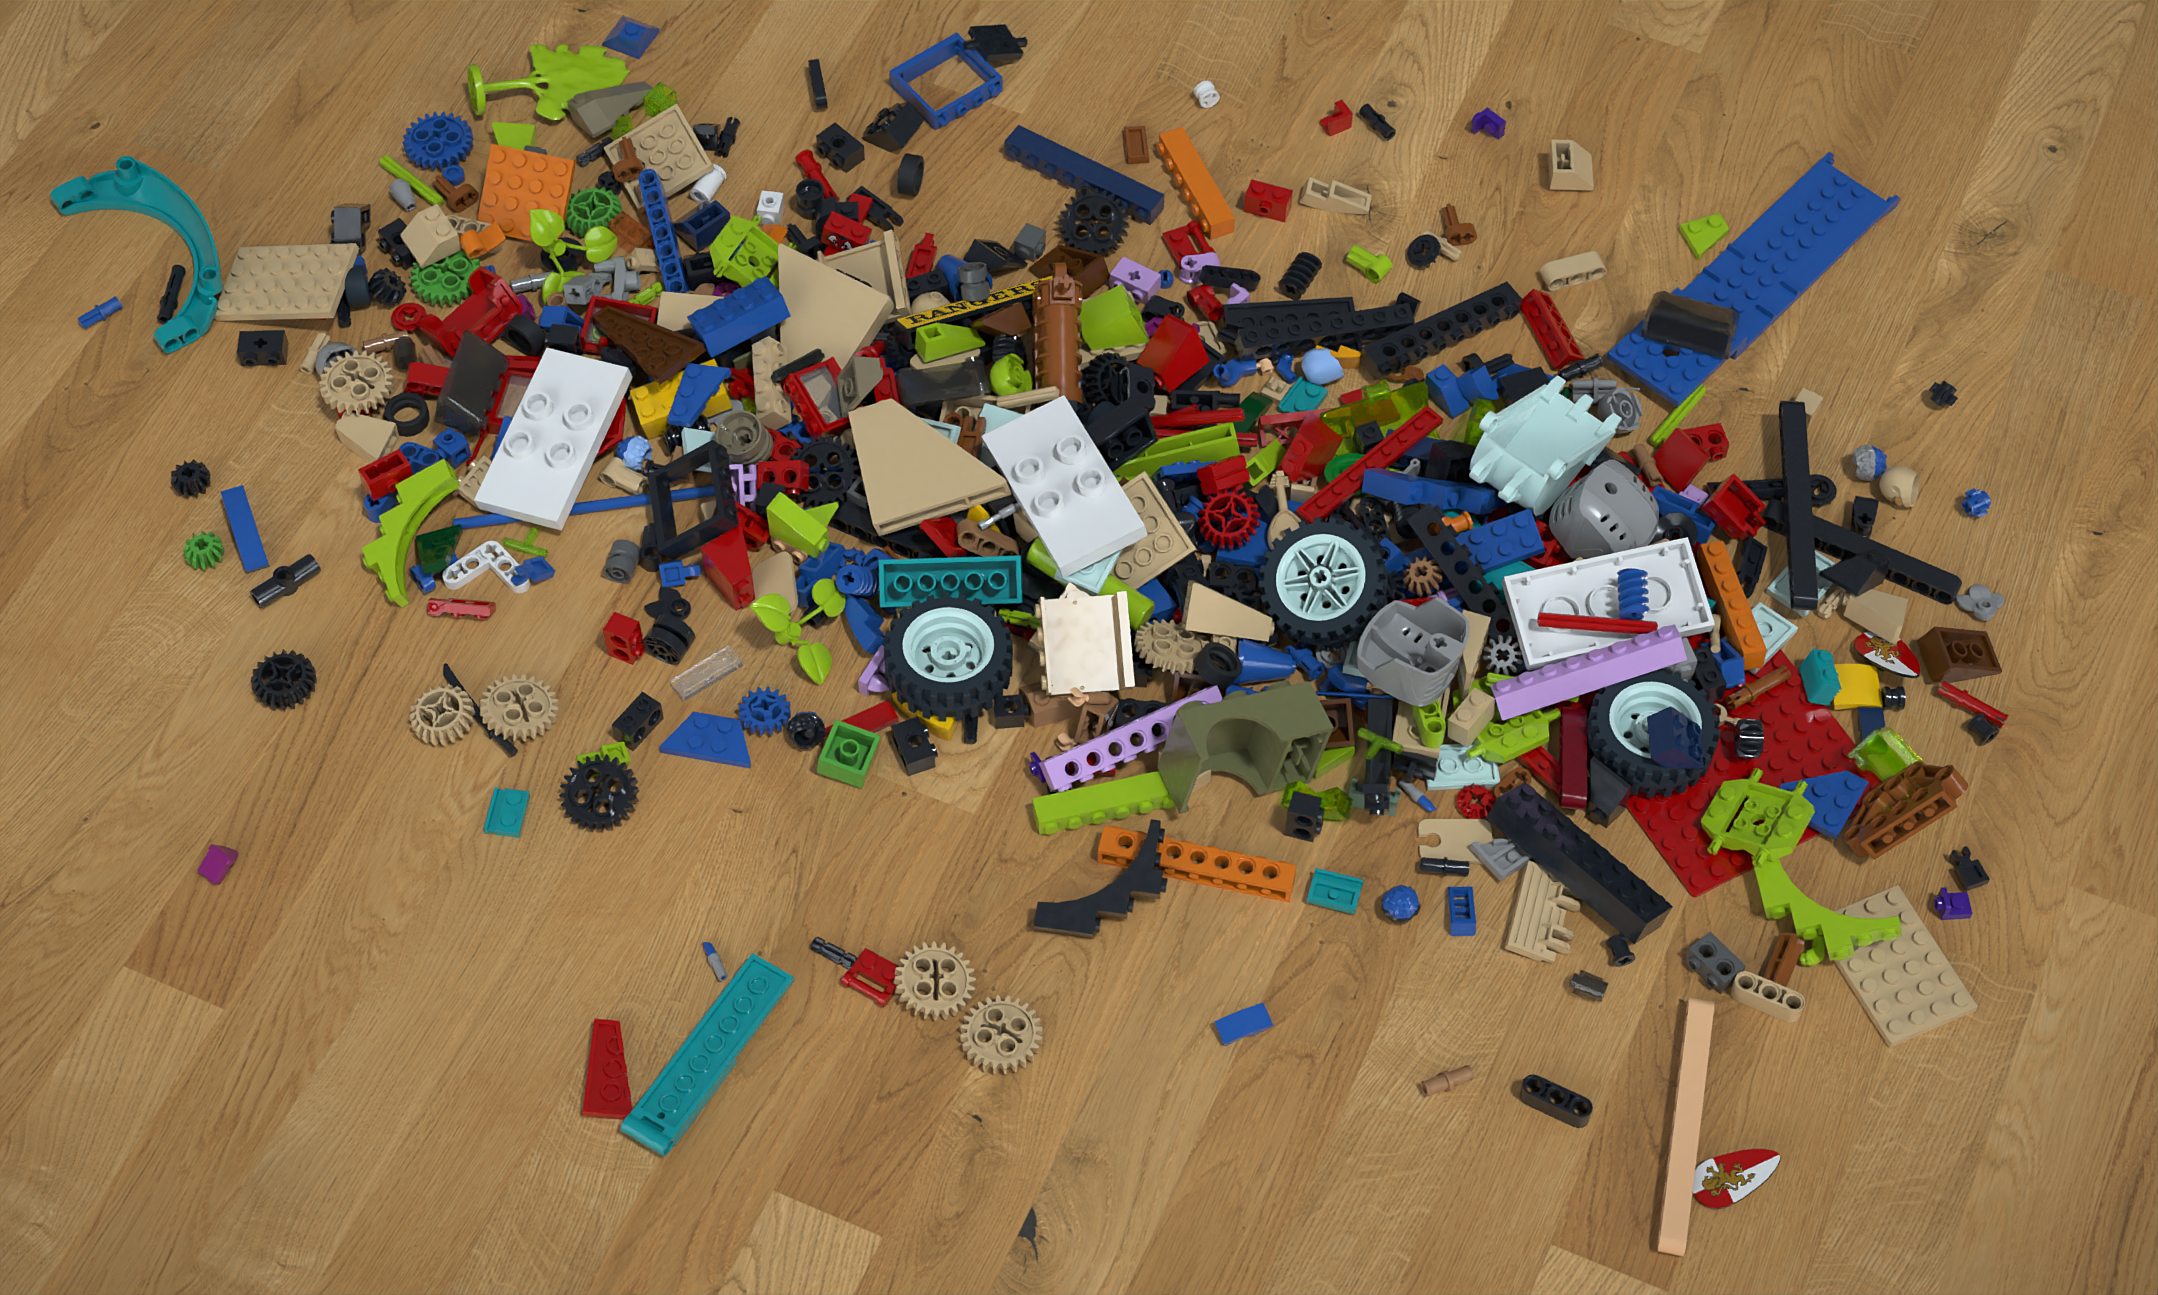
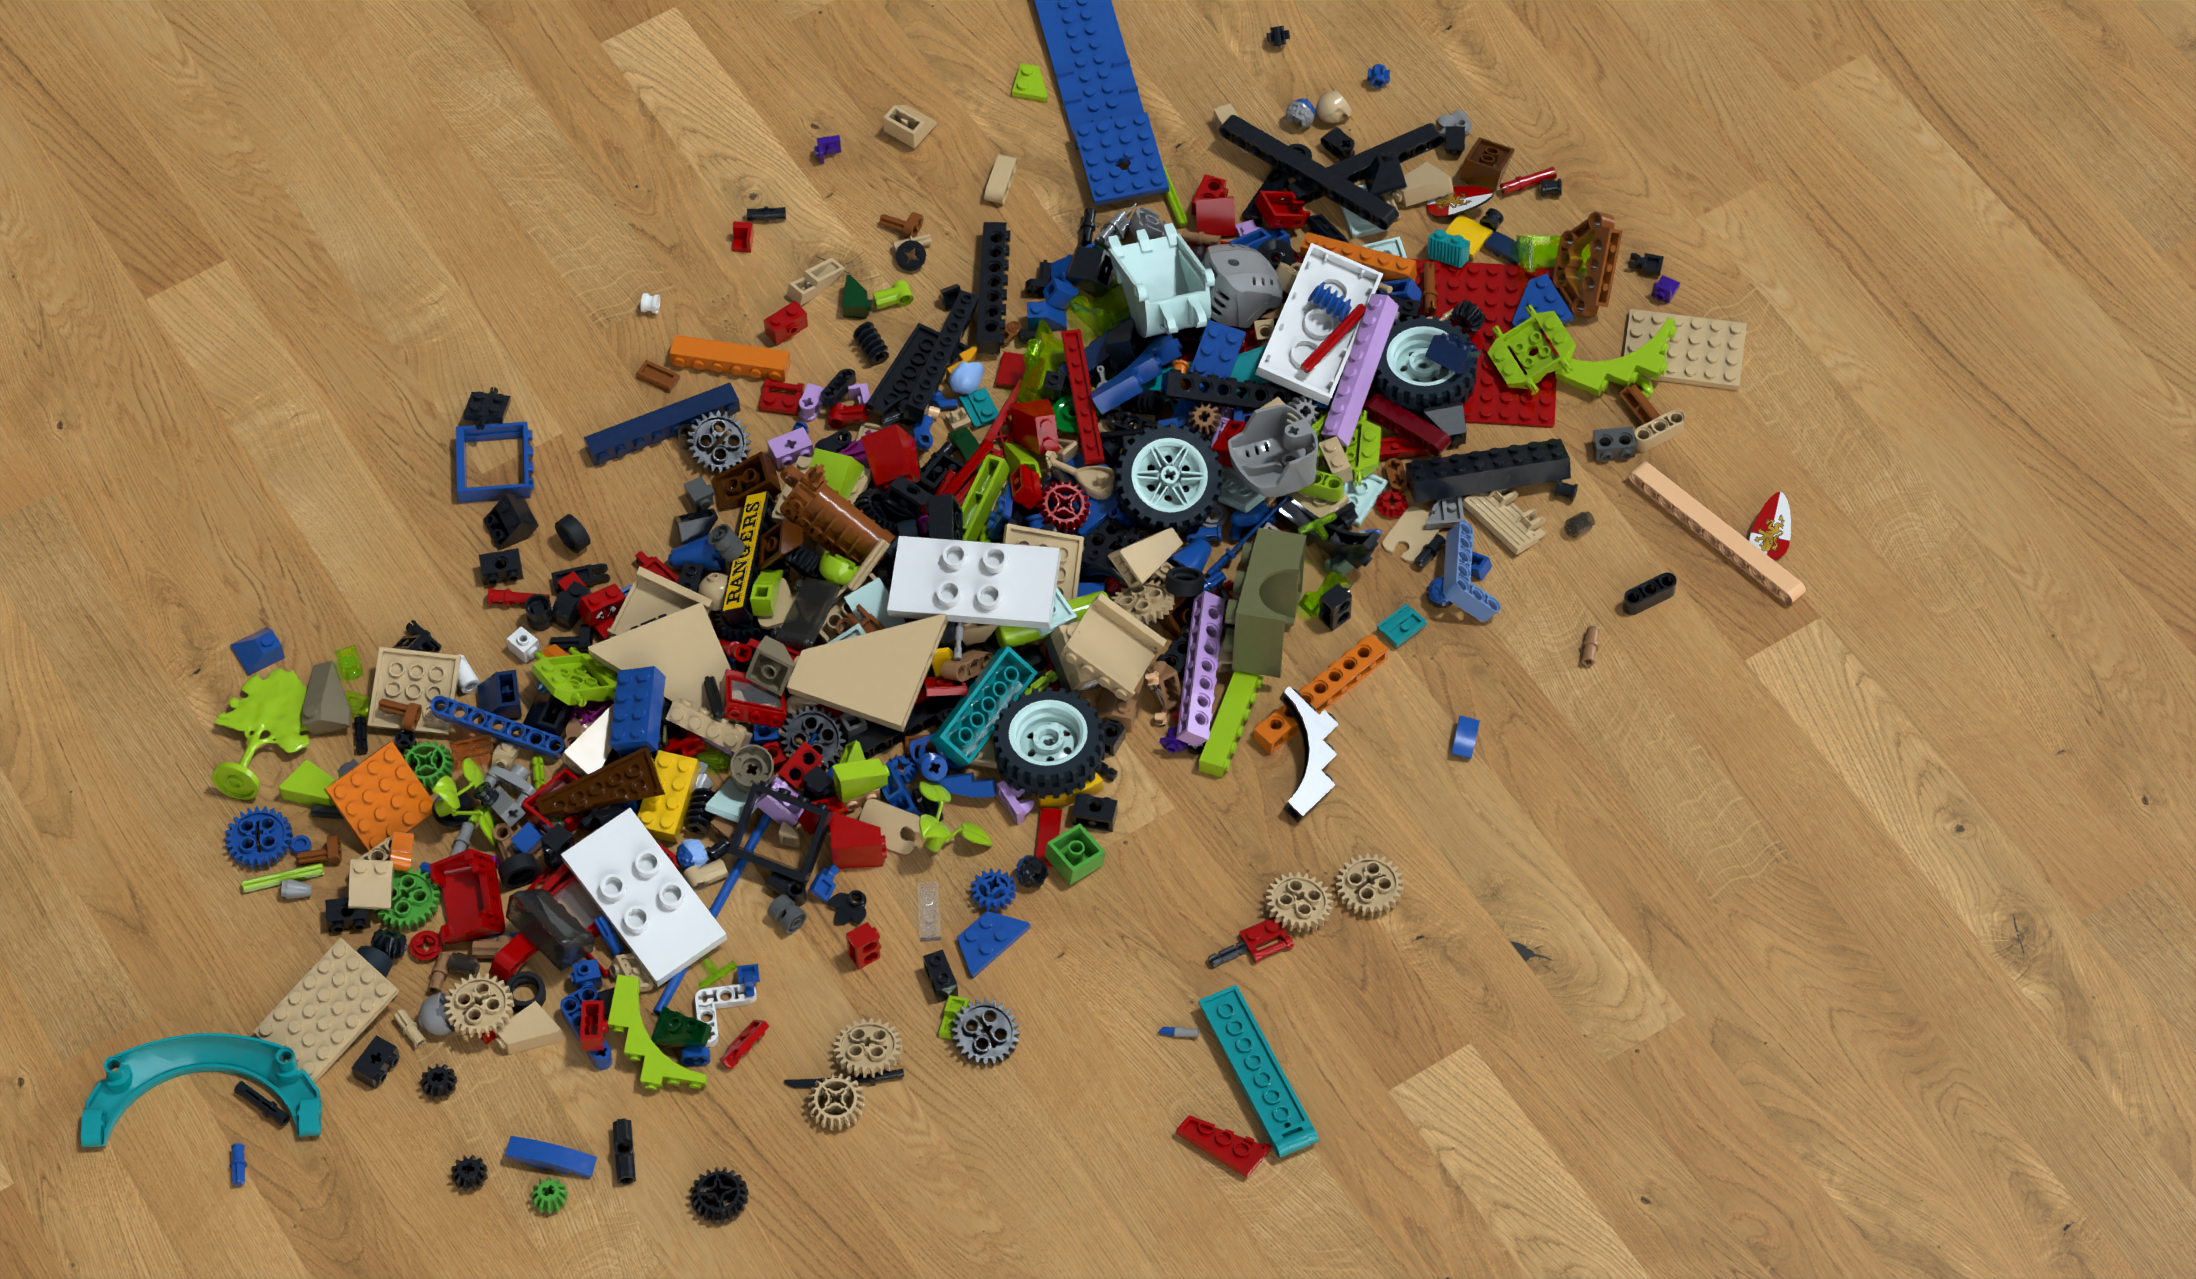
camera: 55 degrees left, 0 degrees up
(271, 403) = (438, 1081): none -> black gear
(351, 224) = (304, 936): black brick -> none
(507, 812) = (952, 1103): teal plate -> none
(584, 265) = (486, 794): none -> black wheel
(669, 639) = (886, 916): black wheel -> none
(694, 391) = (683, 778): blue wing -> none
(817, 84) = (422, 548): black beam -> none
(1338, 237) = (855, 300): none -> dark green slope
(1411, 910) = (1457, 575): none -> medium blue beam
(1550, 329) = (1041, 224): red fence -> none
(1690, 324) = (1118, 136): clear smoke windscreen -> none
(1959, 609) = (1454, 139): none -> black brick

